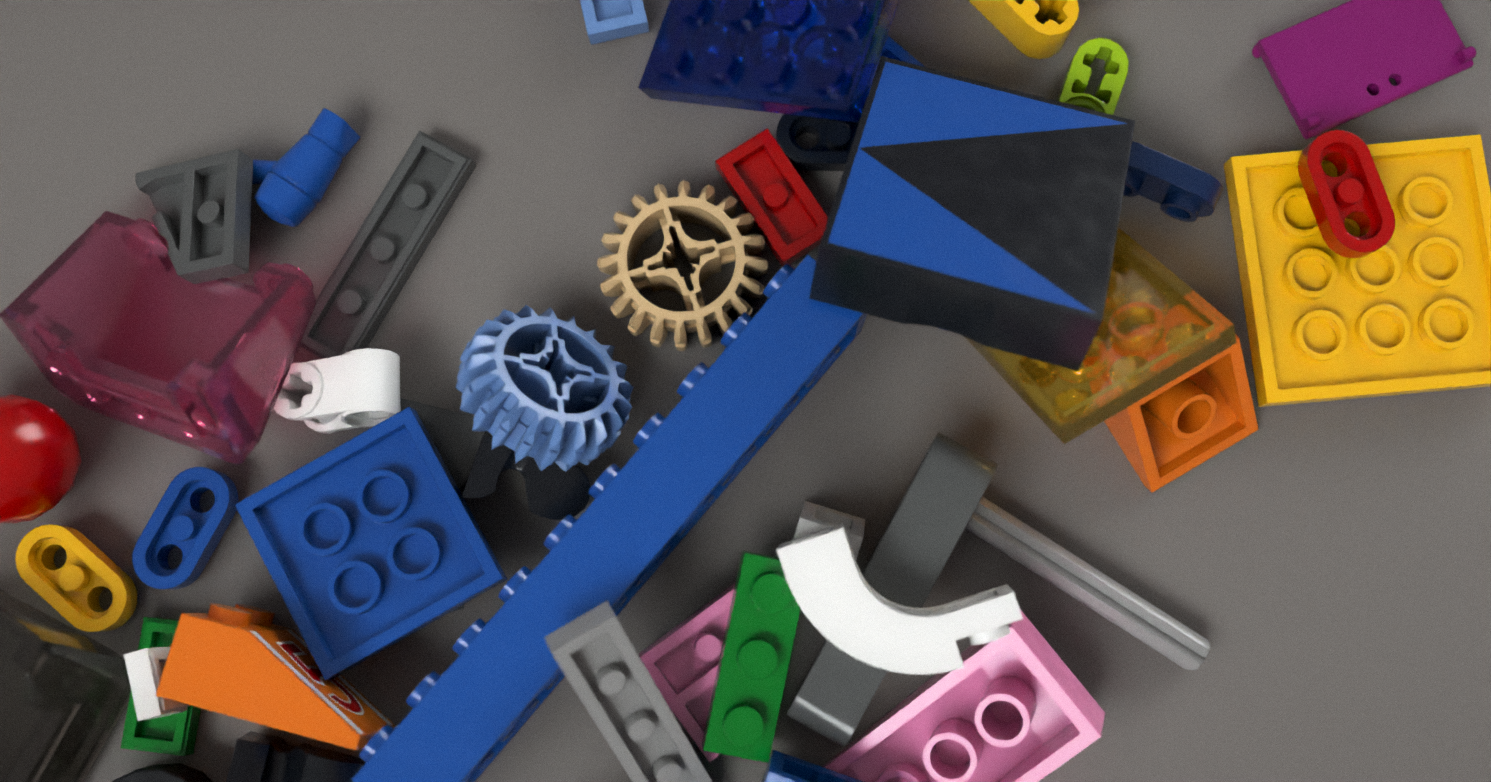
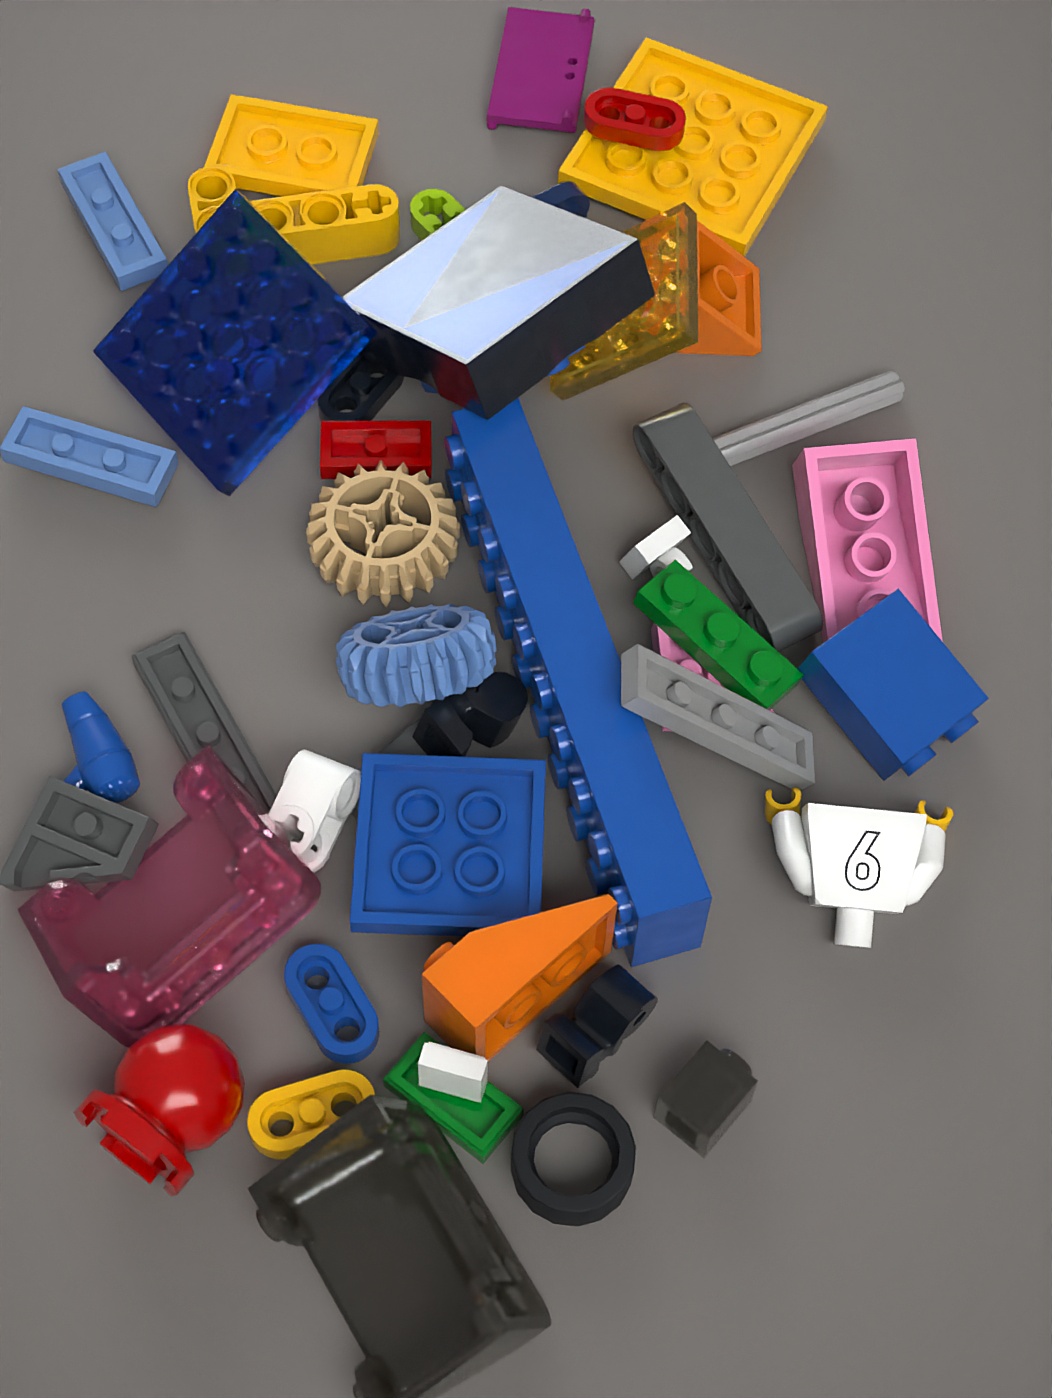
camera: 65 degrees left, 20 degrees down
(879, 631) = (730, 534): white arch -> none

